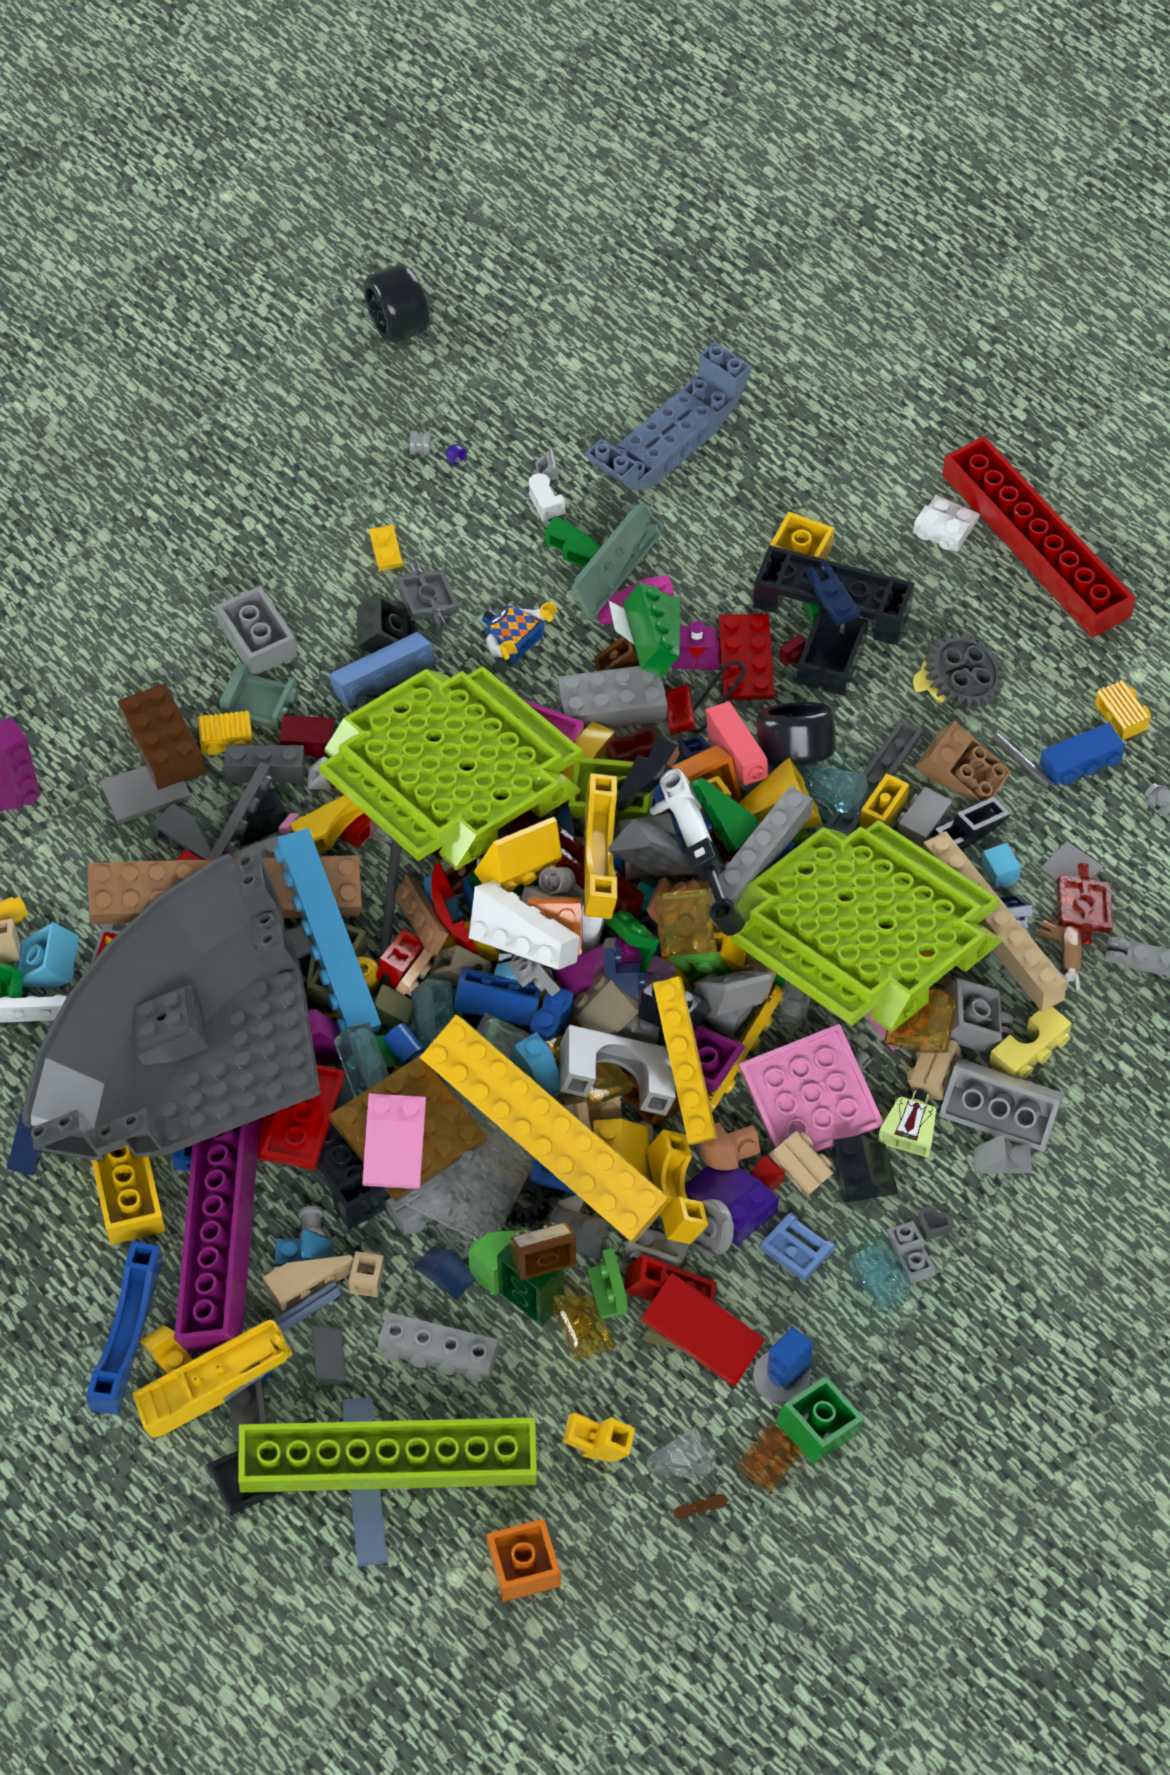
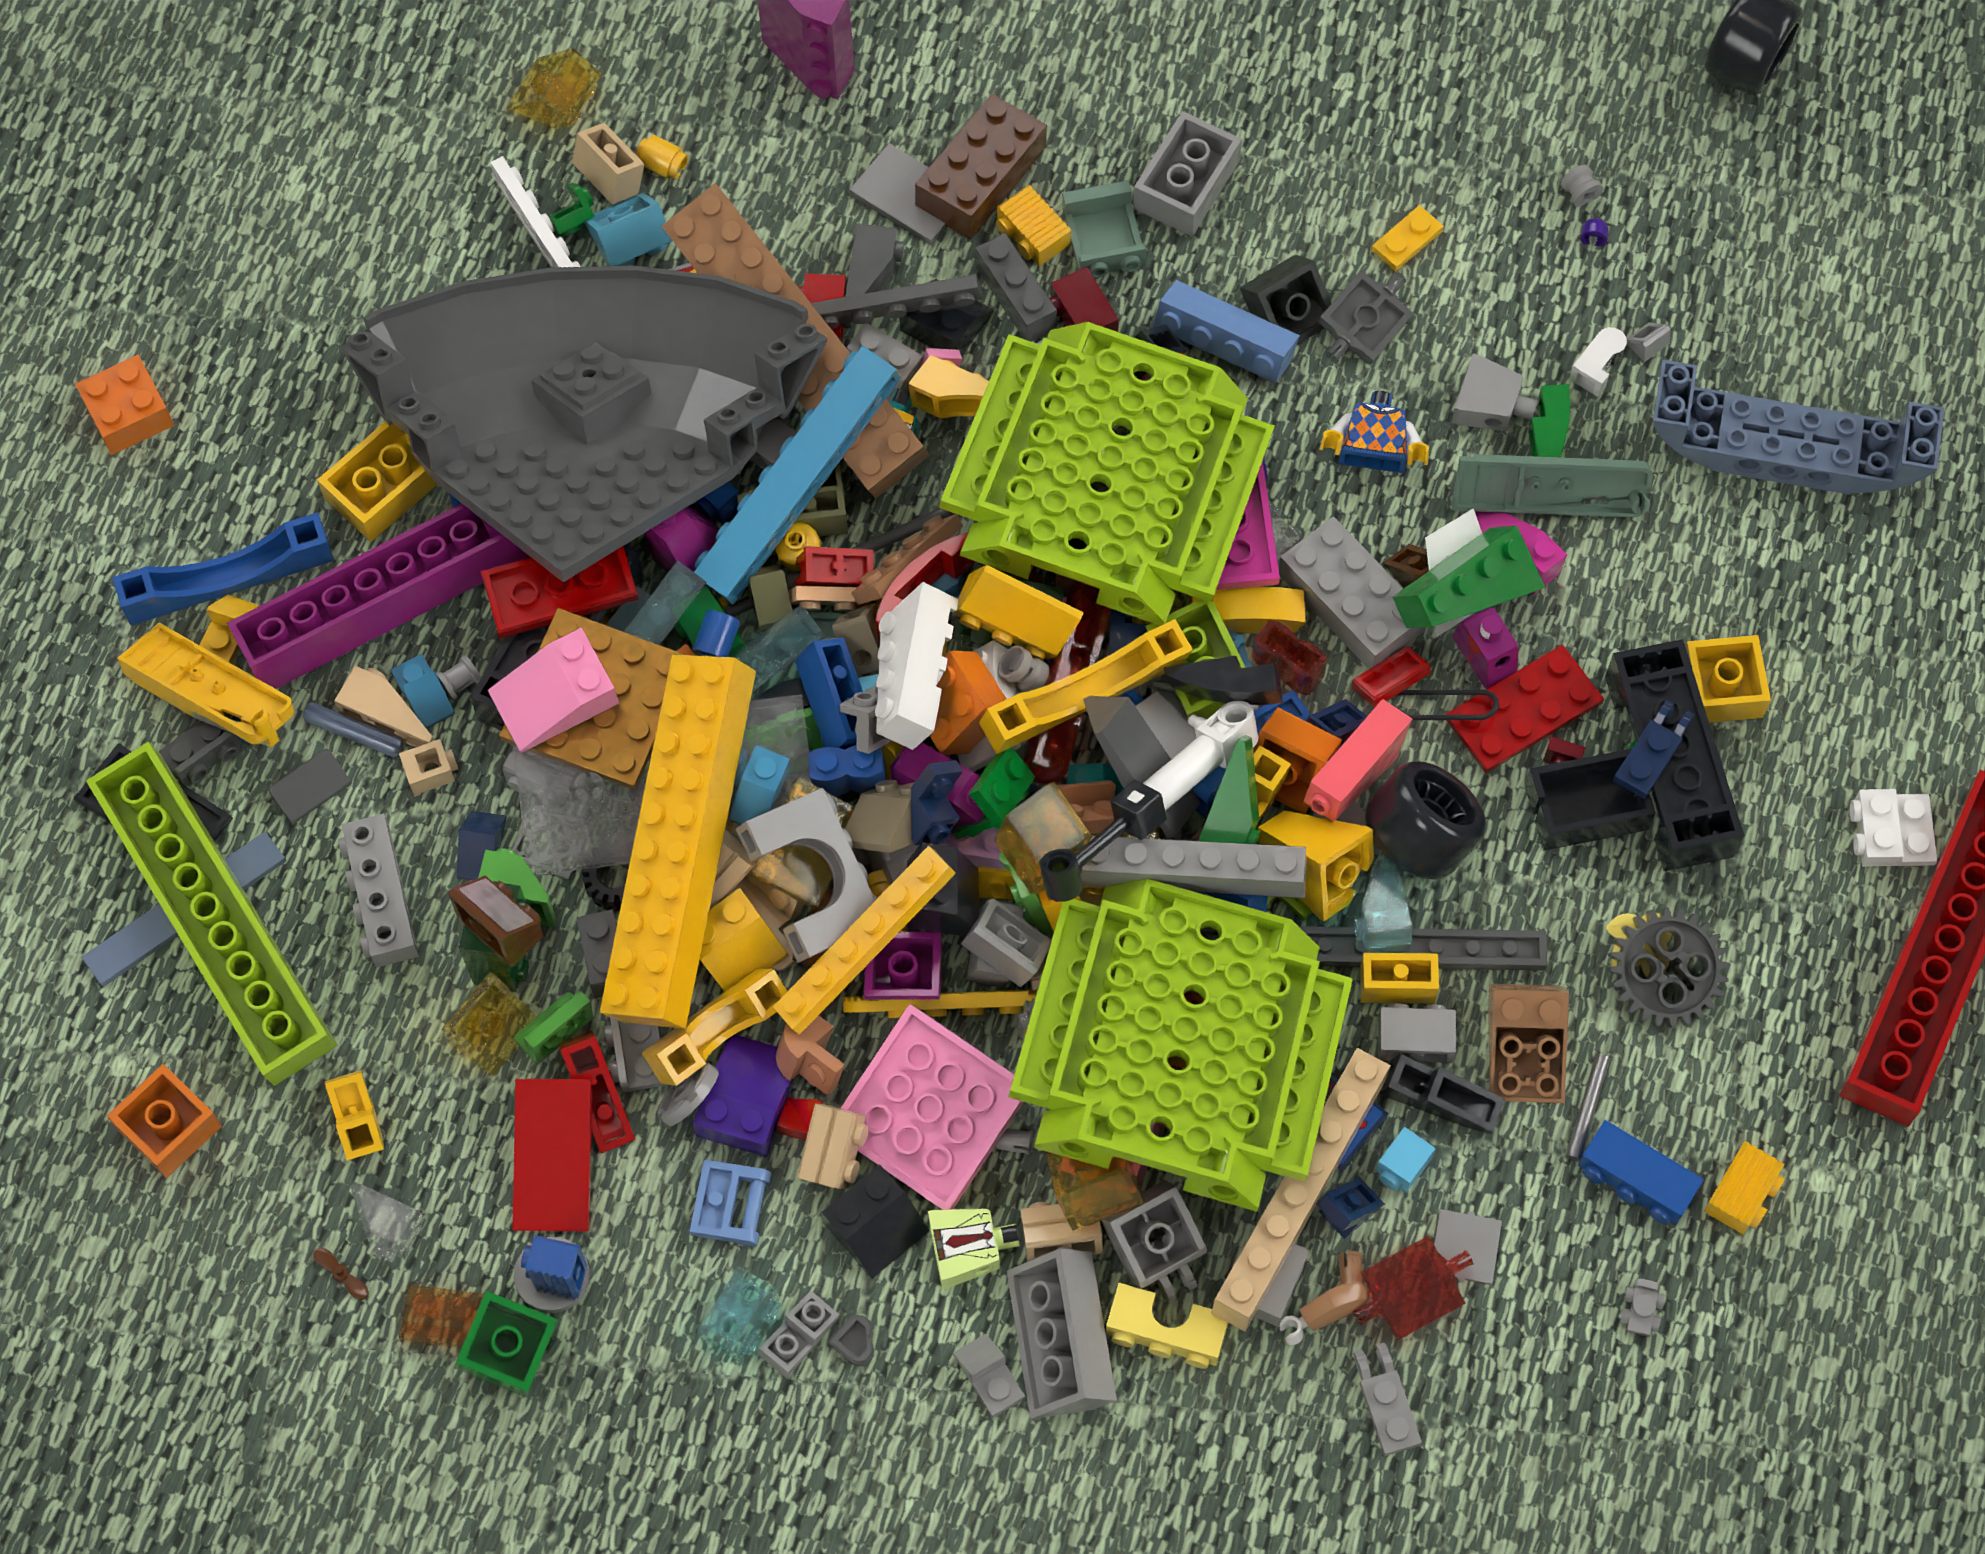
camera: 60 degrees right, 10 degrees up
(528, 561) = (1491, 396): none -> light grey torso

